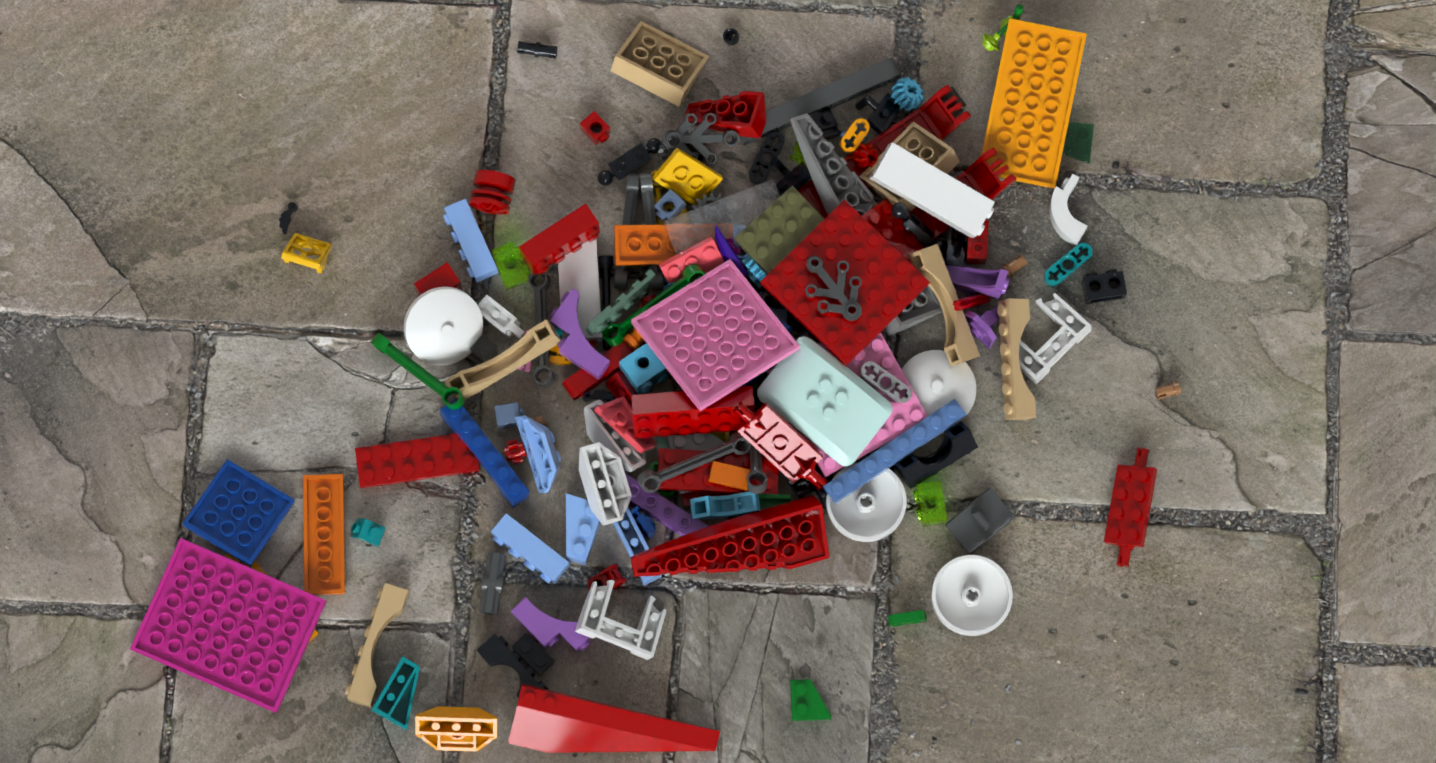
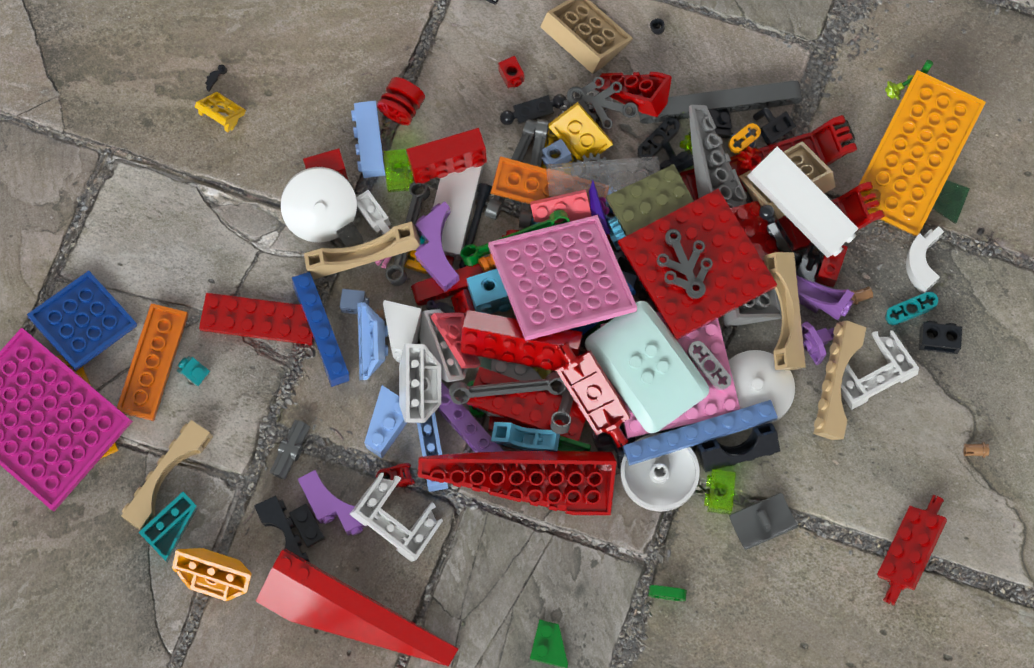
camera: 20 degrees right, 5 degrees down
(416, 370) = (284, 240): green piece -> none
(514, 451) = (348, 335): red gear -> none
(529, 548) = (334, 427): light blue brick -> none
(568, 428) = (402, 326): none -> white slope
(622, 303) = (485, 229): sand green wing -> none
(645, 523) = (446, 432): blue plate -> none
(728, 475) = (536, 409): orange tile -> none
(907, 94) = (803, 116): medium azure gear -> none
(971, 301) = (811, 315): red axle -> none
(971, 595) = (735, 589): white dish -> none

